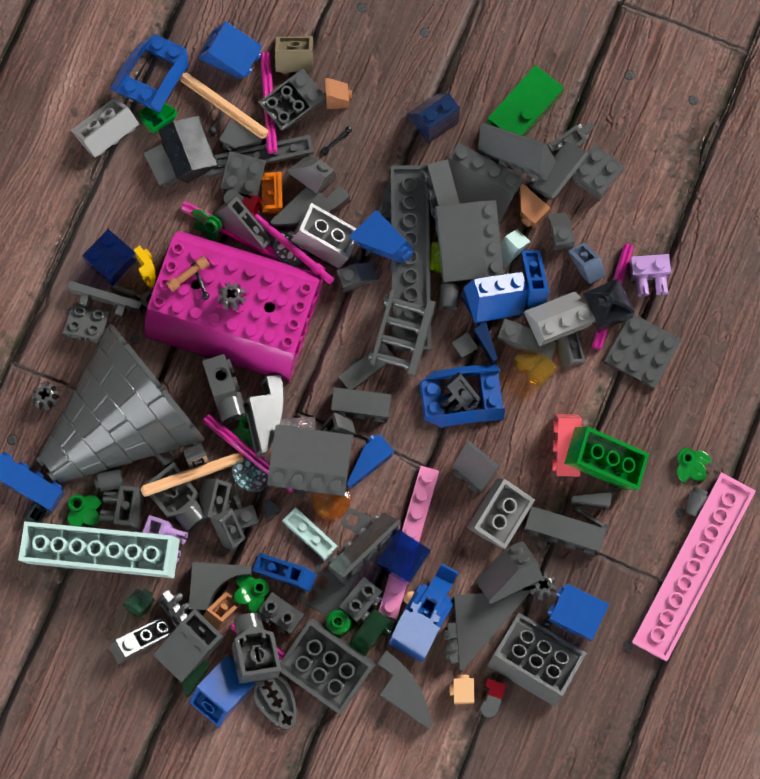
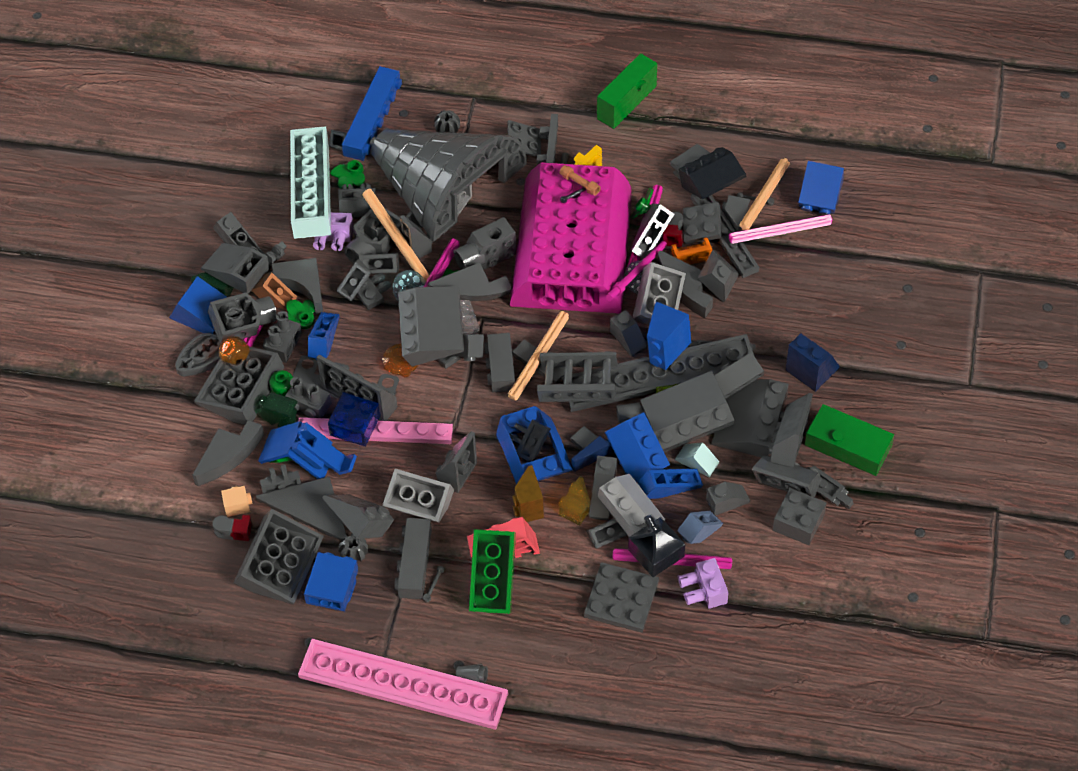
camera: 80 degrees right, 20 degrees down
(58, 204) = (626, 91): none -> green brick
(105, 127) = (713, 113): light grey slope -> none
(109, 480) = (382, 186): dark grey brick -> none
(110, 257) = (589, 134): clear blue brick -> none
(139, 603) = (269, 227): clear green slope -> none
(141, 92) = (754, 136): blue wedge -> none
(154, 120) = (741, 148): green slope -> none
(229, 301) = (566, 215): dark grey piece -> none
(271, 510) = (380, 311): black slope -> none
(293, 100) = (788, 245): dark grey slope -> none
(293, 664) = (233, 349): none -> clear orange hair
(294, 54) = (836, 239): dark tan slope -> none
(309, 534) = (365, 349): light aqua tile -> none
(325, 150) = (749, 287): black hinge -> none
(337, 94) = (806, 277): nougat slope -> none
(363, 366) = (534, 361): none -> light nougat axle
(373, 455) = (446, 379): blue slope -> none
(526, 409) = (528, 497): none -> pearl gold slope
(532, 208) = (740, 466): nougat slope -> none
(595, 500) = (452, 583): dark grey slope -> none
(694, 467) = (508, 666): green plate -> none

